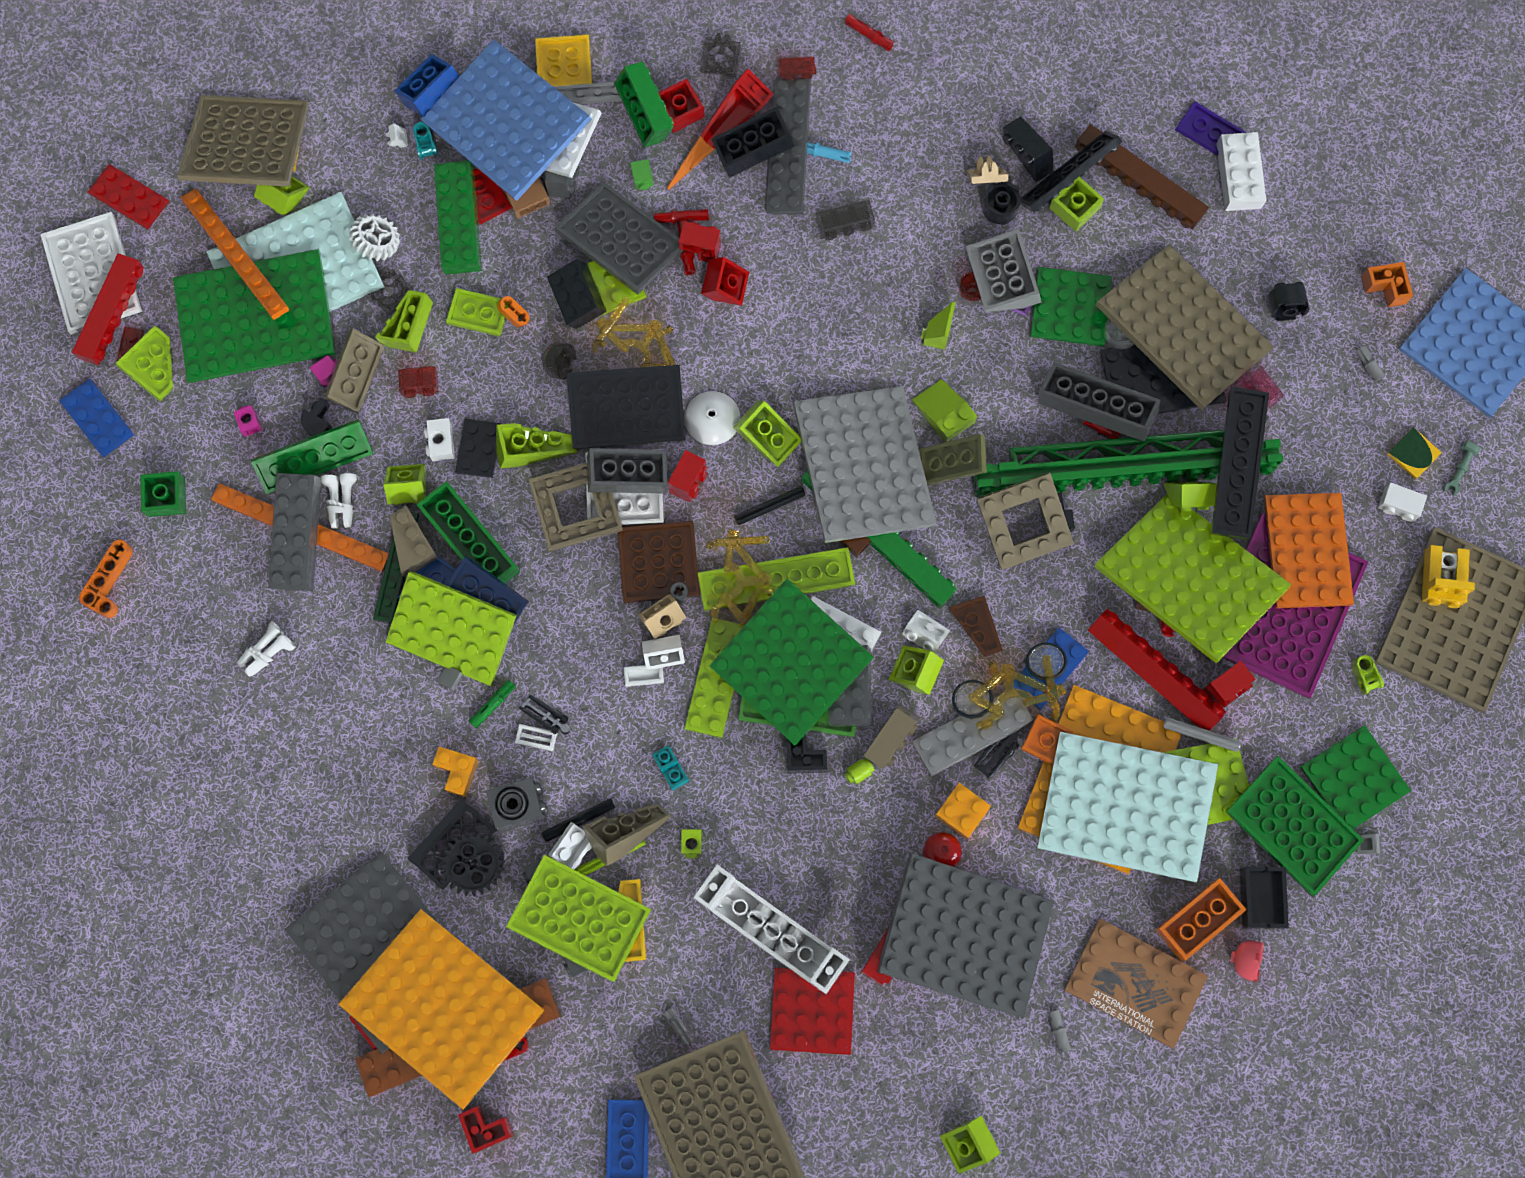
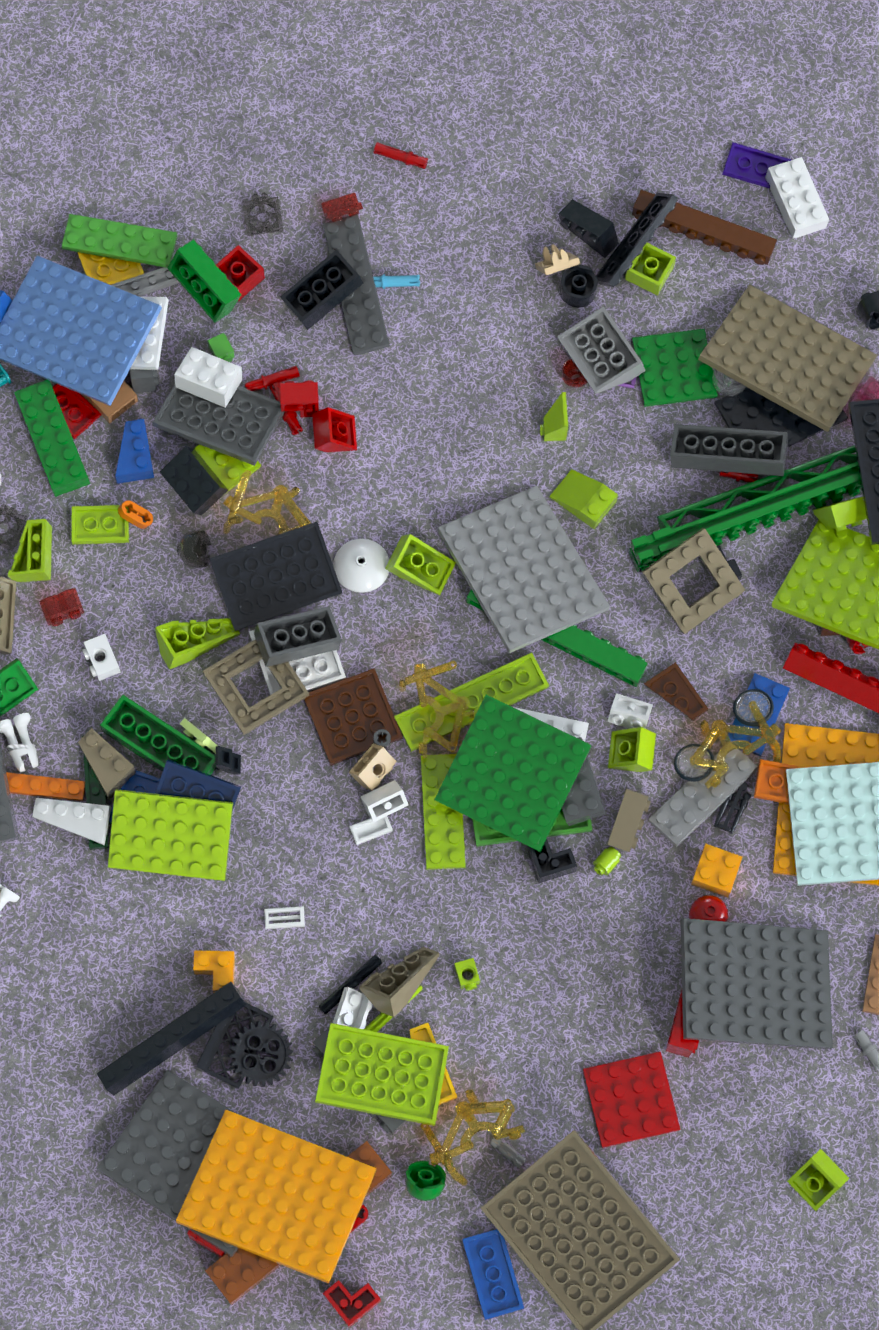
camera: 20 degrees left, 5 degrees down
(370, 587) = (75, 817): none -> white wing
(392, 825) = (171, 1038): none -> black brick
(405, 484) = (80, 709): lime slope -> none
(450, 678) = (182, 884): light grey slope -> none
(477, 449) = (141, 656): black plate -> none
(492, 703) = (231, 897): green axle -> none
(509, 543) = (202, 739): none -> yellowish green wing
(526, 571) = (227, 760): none -> black slope
(529, 808) = (294, 973): dark grey brick -> none
(530, 253) = (134, 455): none -> blue wedge
(551, 724) = (288, 897): black piece -> none
(577, 45) = (119, 240): none -> bright green plate
(589, 1032) = (425, 1180): none -> green cylinder
(619, 198) = (208, 377): none -> white brick
(648, 977) = (466, 1111): none -> clear yellow piece
(670, 767) = (424, 909): teal slope -> none
(687, 476) = (356, 626): red brick -> none
(738, 106) = (295, 258): red plate -> none
(769, 505) = (443, 633): black axle -> none
(771, 929) = (570, 1032): white slope -> none
(845, 220) = (433, 341): clear smoke brick -> none
(857, 545) = (538, 648): reddish brown brick -> none
(954, 459) = (609, 541): olive plate -> none

